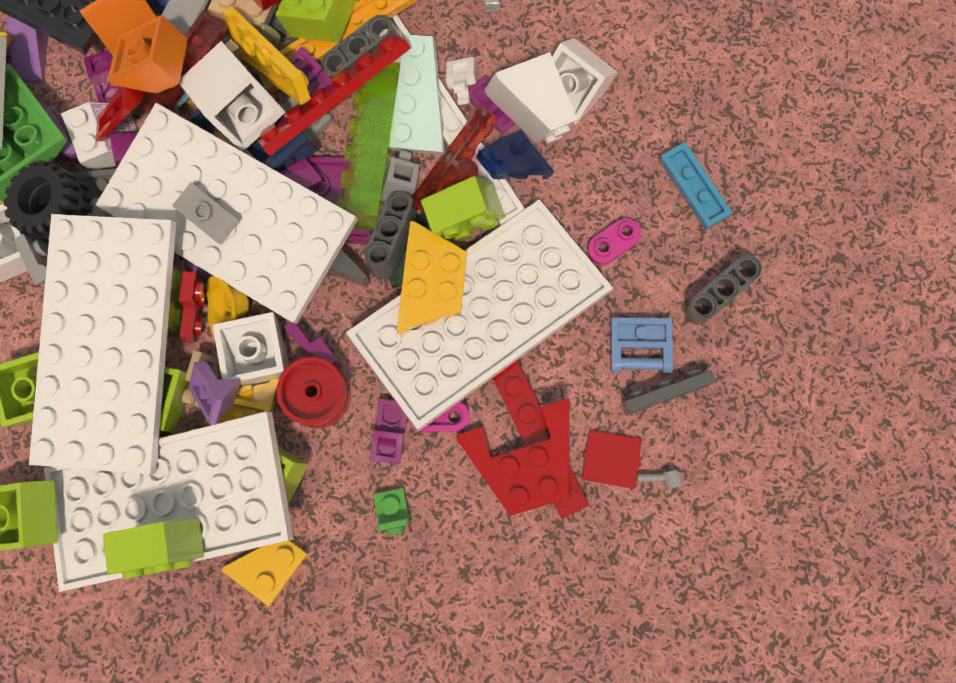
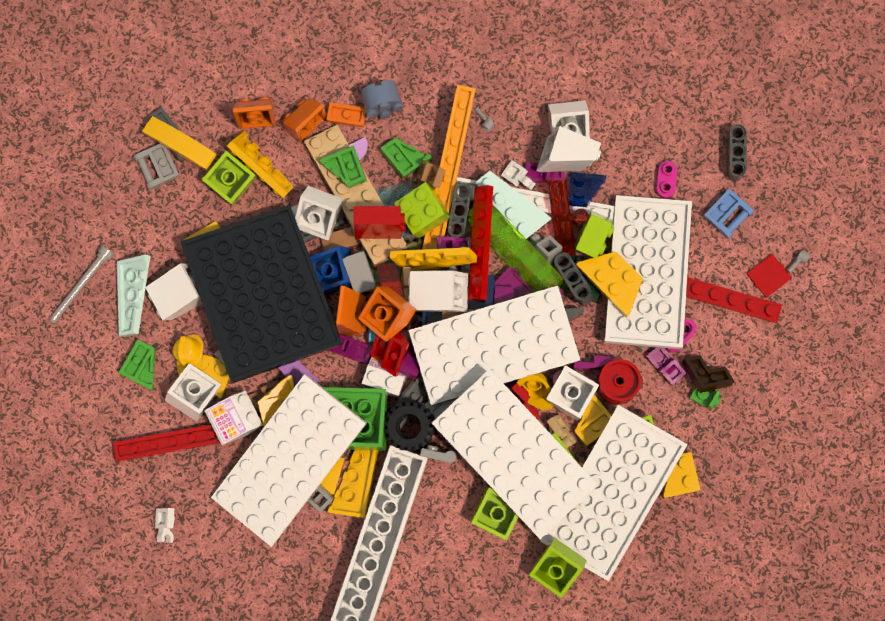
camera: 55 degrees left, 0 degrees up
(153, 548) = (638, 505): lime brick -> none
(206, 213) = (492, 353): light grey plate -> none
(211, 394) = (581, 426): medium lavender slope -> none
(409, 491) = (707, 379): none -> dark brown plate
(529, 474) = (745, 318): red wing -> none
(667, 391) = (761, 221): dark grey plate -> none
(695, 186) = (674, 117): dark azure plate -> none

